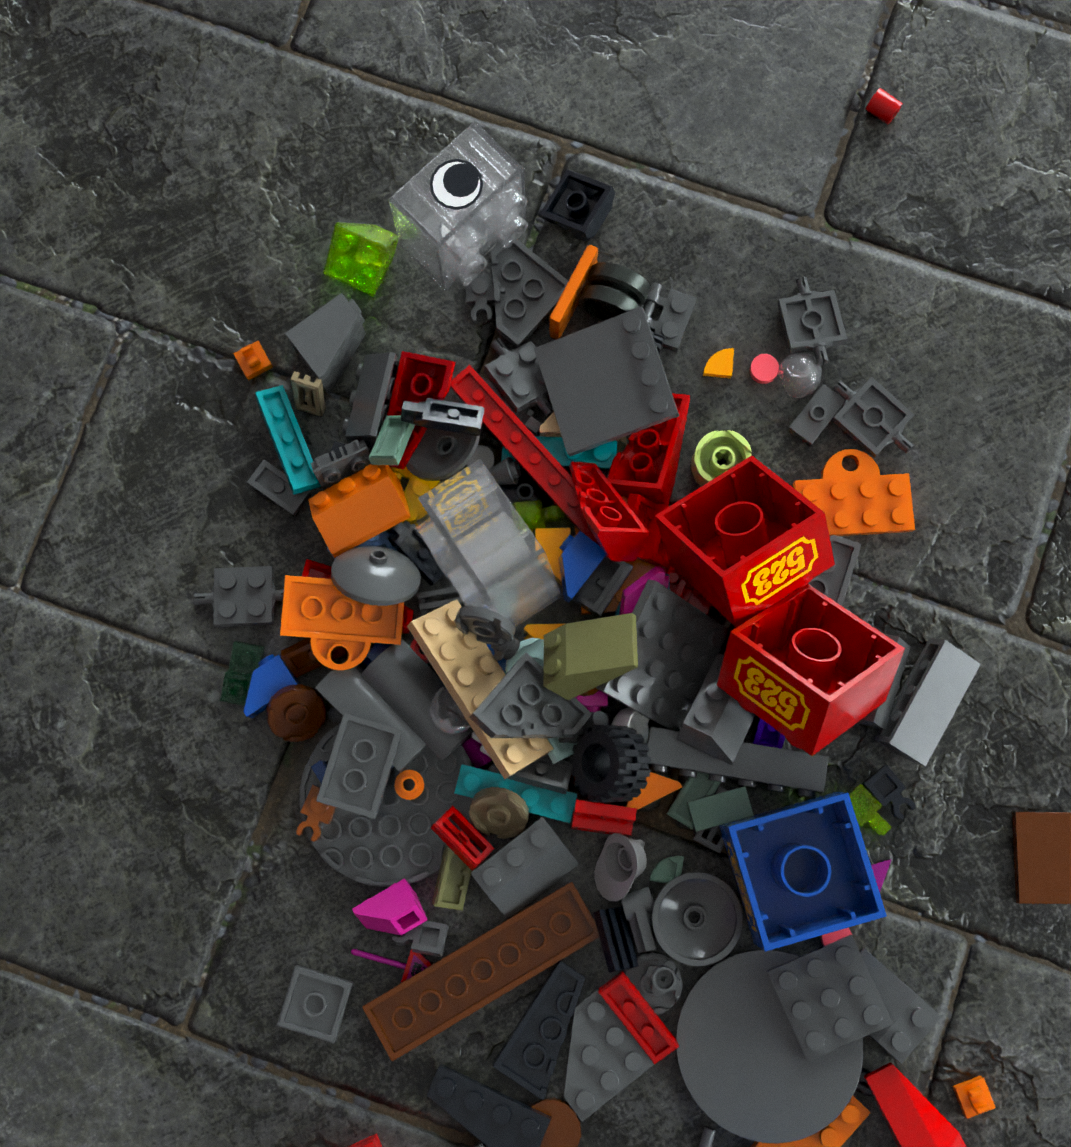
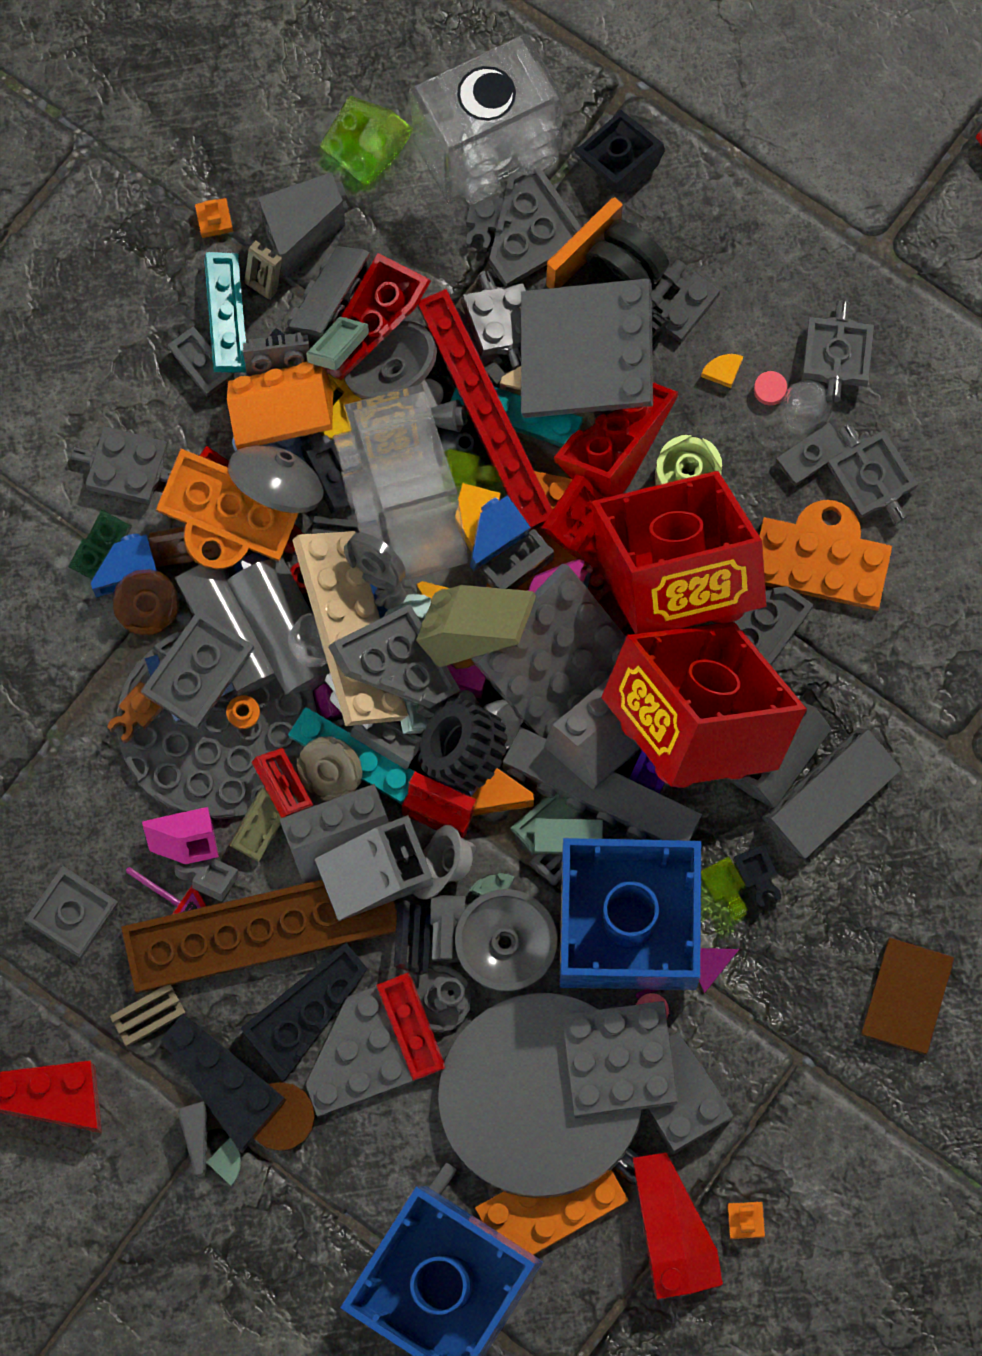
camera: 15 degrees right, 5 degrees down
(390, 1095) = (143, 1002): none -> dark tan tile
(444, 415) = (401, 333): black hinge -> none
(566, 893) = (374, 869): none -> slope
(607, 513) = (542, 486): red wedge -> none

